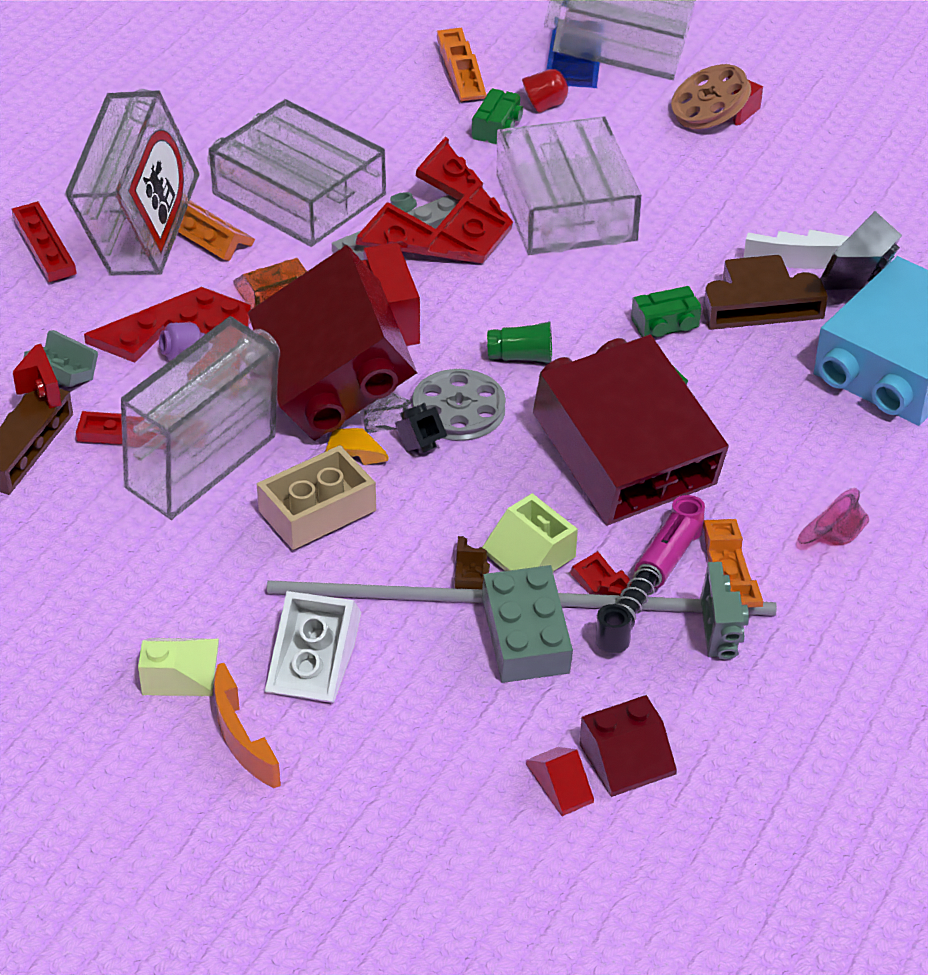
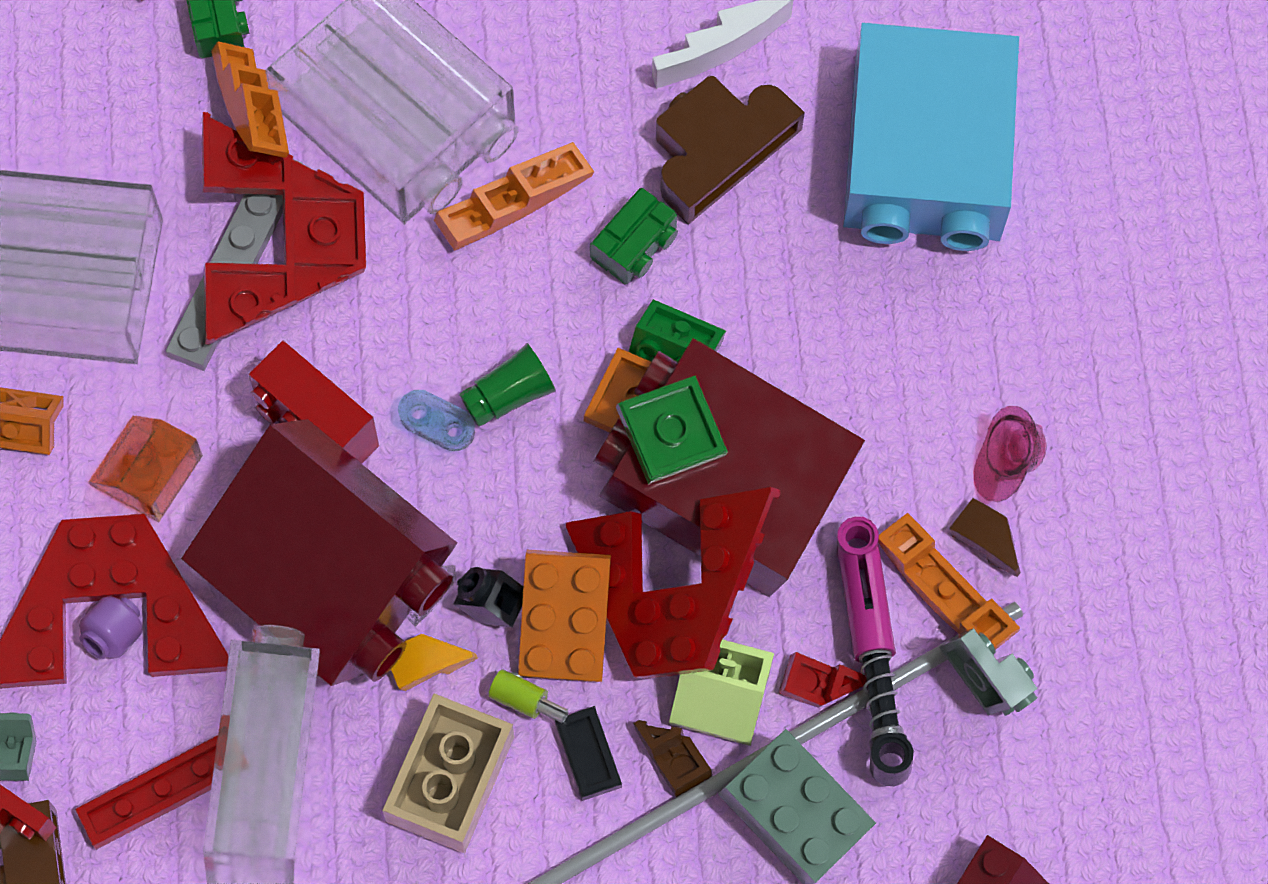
camera: 35 degrees left, 25 degrees up
(399, 489) = (524, 696): none -> lime piece
(403, 201) = (204, 233): sand green plate -> none
(416, 541) = (588, 754): none -> black tile
(458, 455) = (564, 615): none -> orange plate
(464, 341) = (439, 419): none -> clear light blue plate
(469, 399) = (495, 500): light grey wedge -> none
(479, 150) = (249, 100): none -> orange slope
(518, 480) = (682, 625): none -> red wing
(596, 364) = (671, 429): none -> green plate
(615, 266) = (515, 196): none -> orange slope
(787, 559) = (989, 533): none -> reddish brown slope
(862, 255) = (822, 50): black slope -> none

